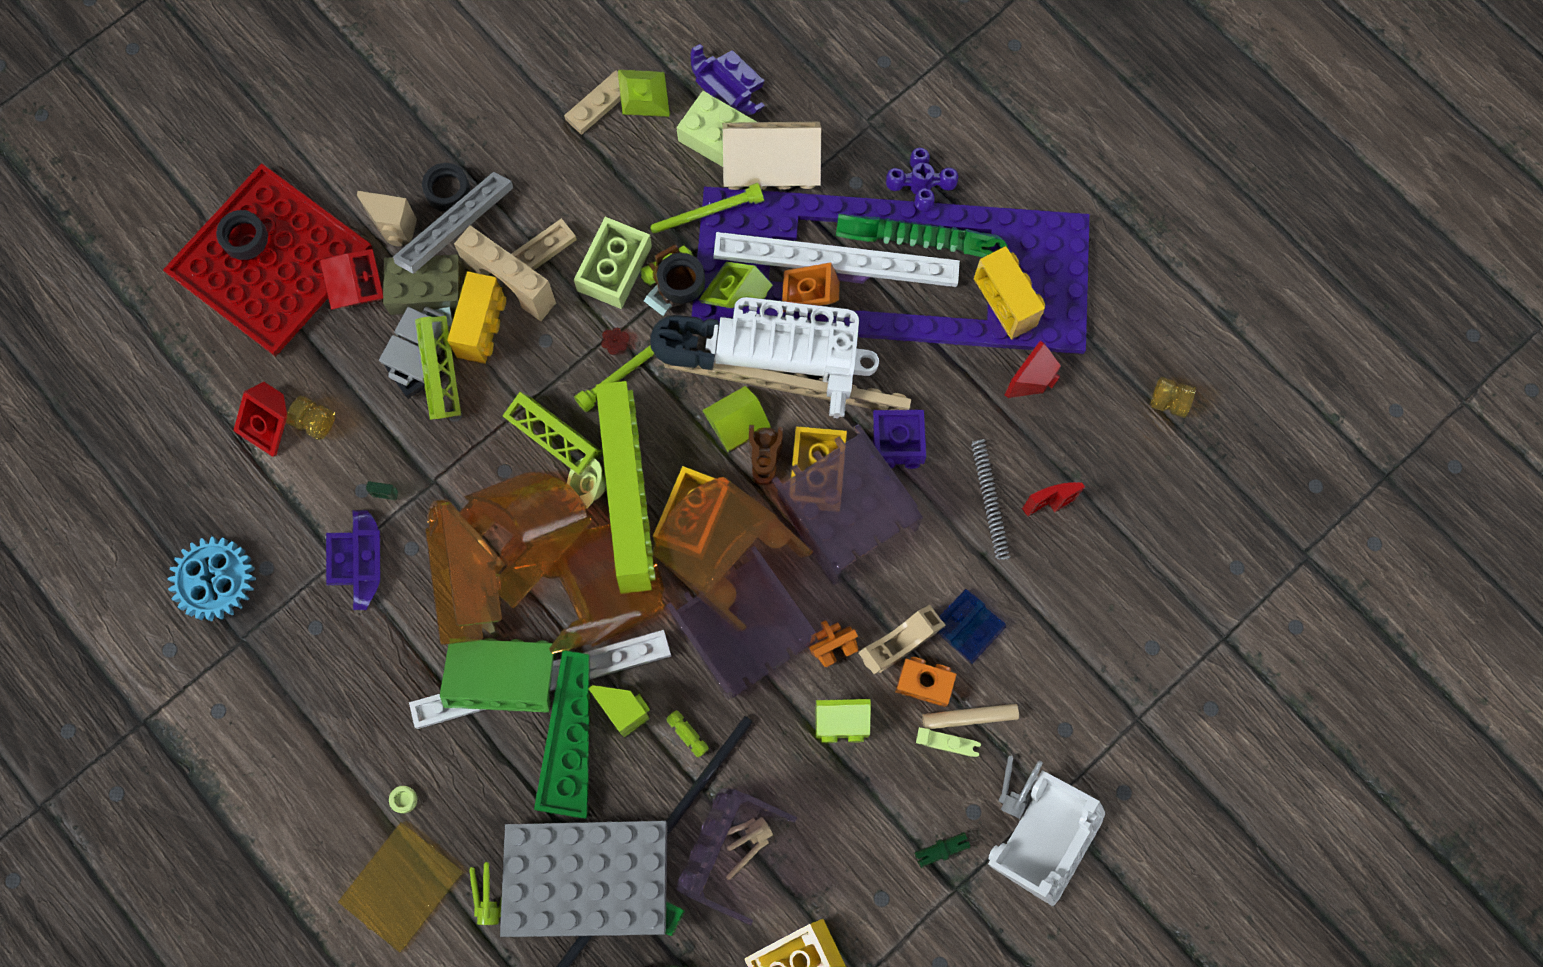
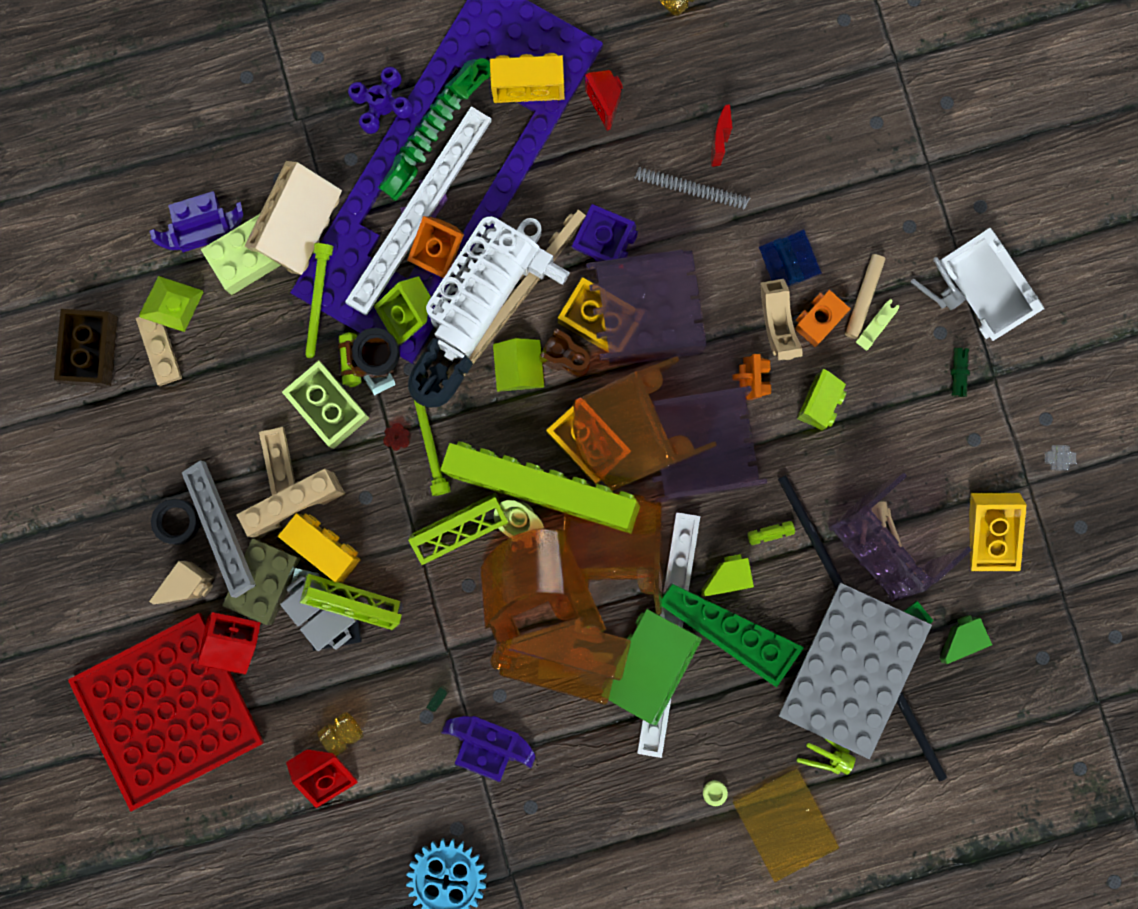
camera: 60 degrees left, 10 degrees up
(237, 218) = (115, 722): black tyre -> none
(567, 40) = (85, 347): none -> dark brown brick

